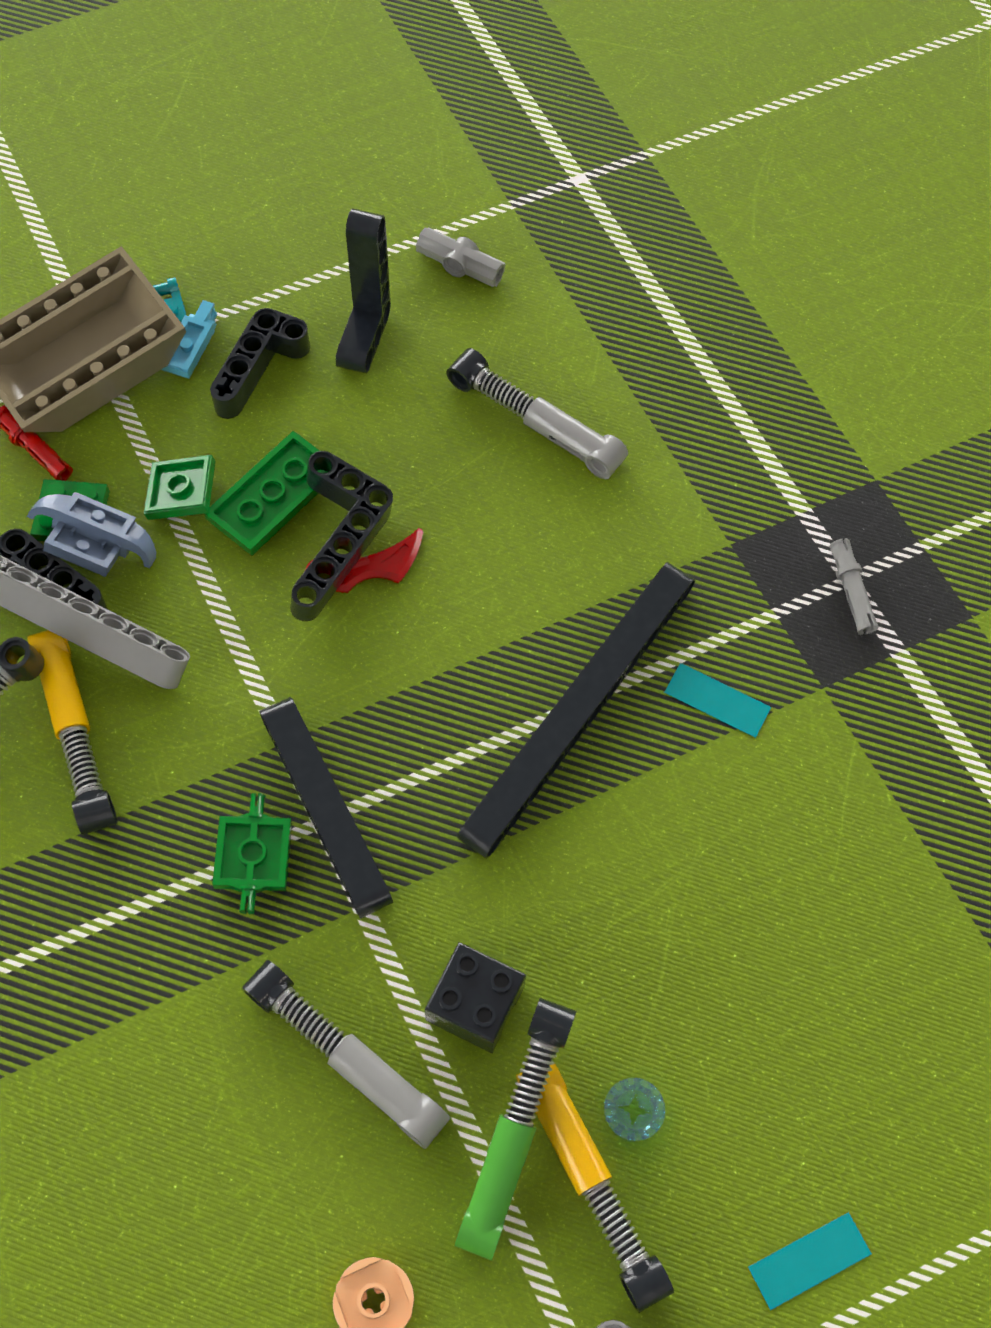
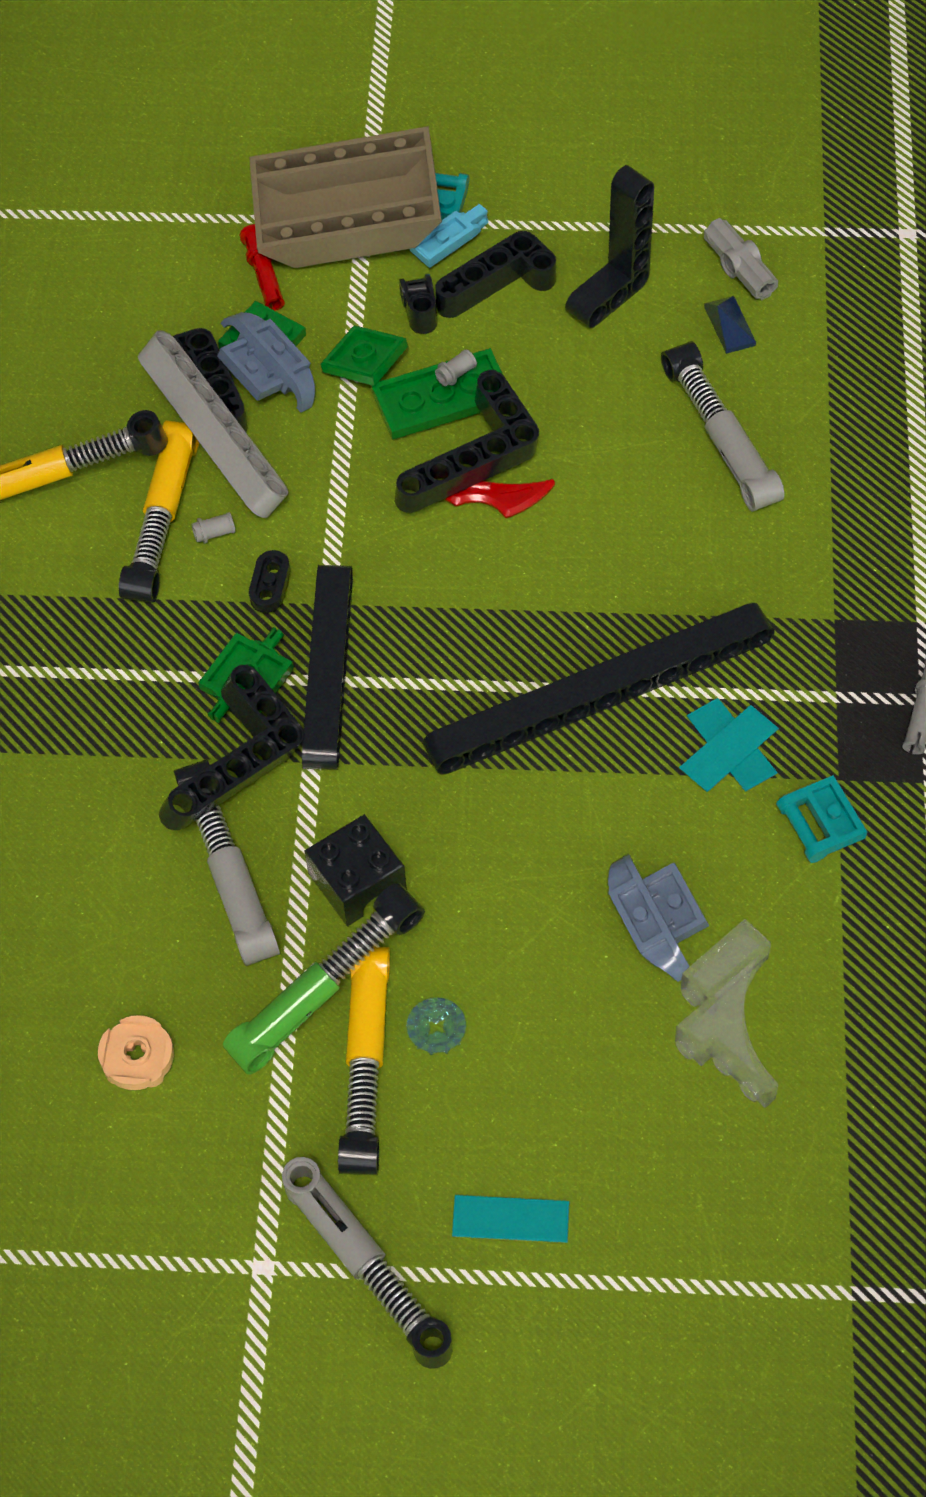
camera: 35 degrees right, 5 degrees down
(133, 720) = (213, 527): none -> light grey pin
(201, 415) = (419, 303): none -> black piece
(219, 750) = (267, 583): none -> black plate
(273, 468) = (449, 372): none -> light grey pin
(307, 946) = (265, 742): none -> black beam
(484, 319) = (730, 324): none -> dark blue slope
(718, 705) = (728, 748): none -> teal sticker
(756, 891) = (656, 912): none -> sand blue plate
(843, 723) = (832, 813): none -> teal plate
(876, 971) = (718, 1025): none -> clear arch

